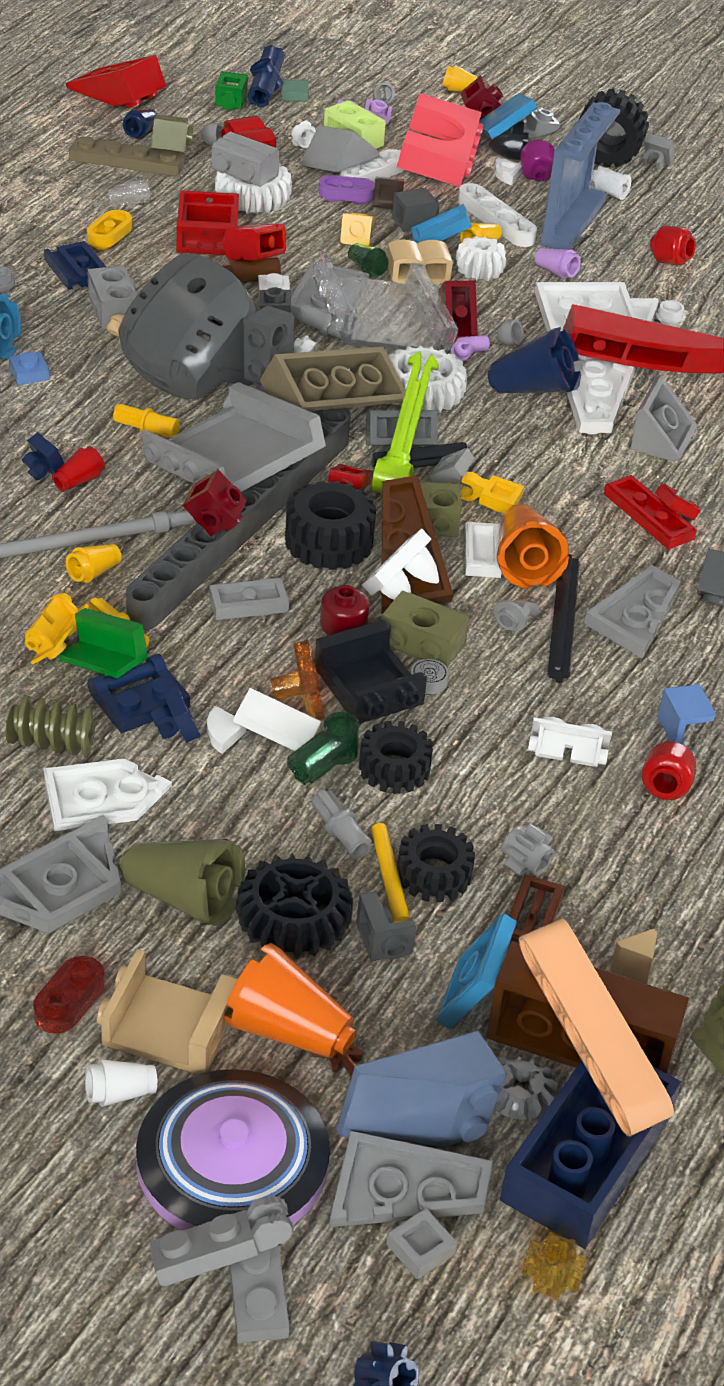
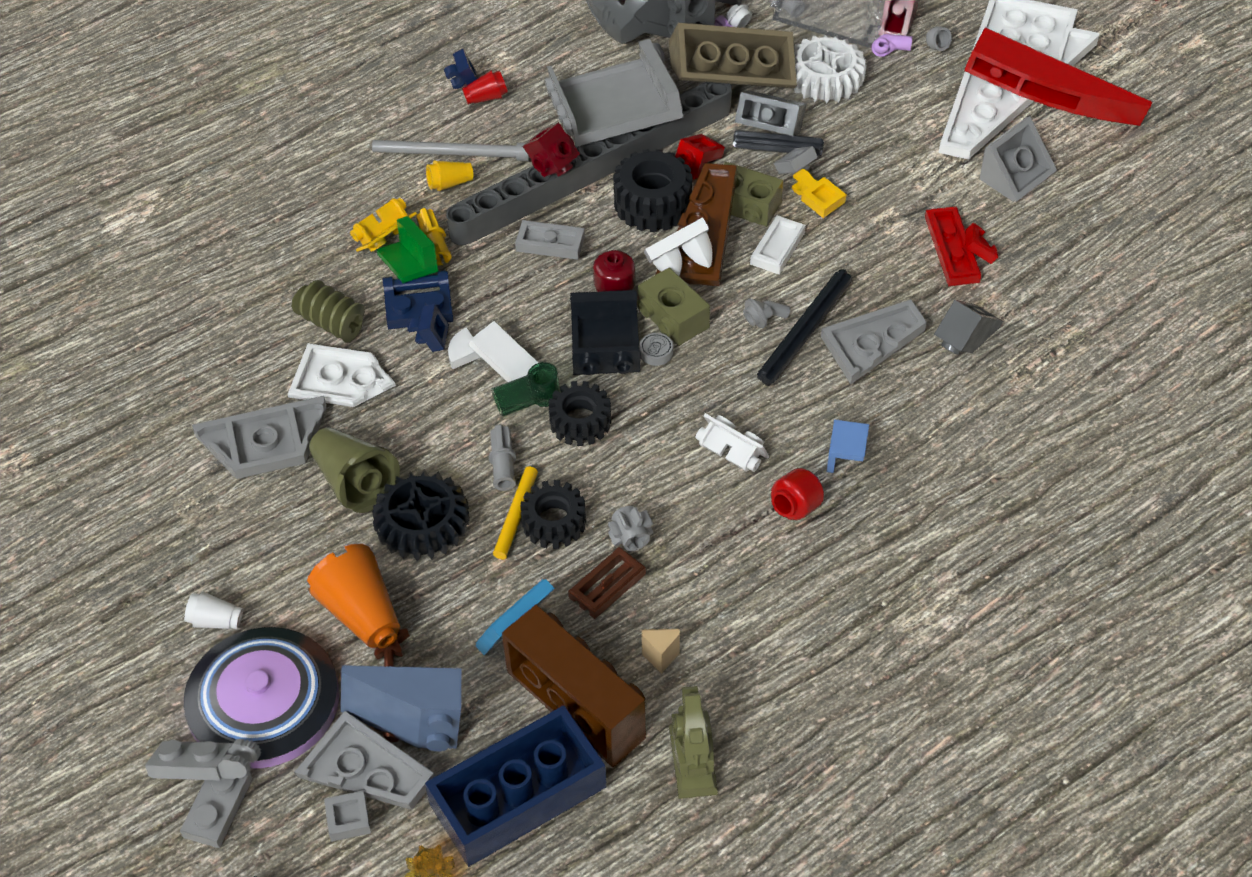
camera: 30 degrees right, 10 degrees up
(70, 989) = (223, 532): clear red plate -> none
(147, 420) = (568, 55): yellow axle -> none
(164, 1018) = (271, 572): tan panel -> none
(303, 682) = (548, 327): clear orange tile -> none
(379, 933) = (471, 557): dark grey bracket -> none
(397, 460) = (742, 150): lime piece -> none
(522, 1103) = (487, 727): light grey gear -> none
(530, 548) = (808, 254): orange cone -> none
(538, 366) = (932, 80): dark blue cone -> none
(596, 1027) = (546, 698): light nougat beam -> none
(670, 313) = (1106, 50): white plate -> none

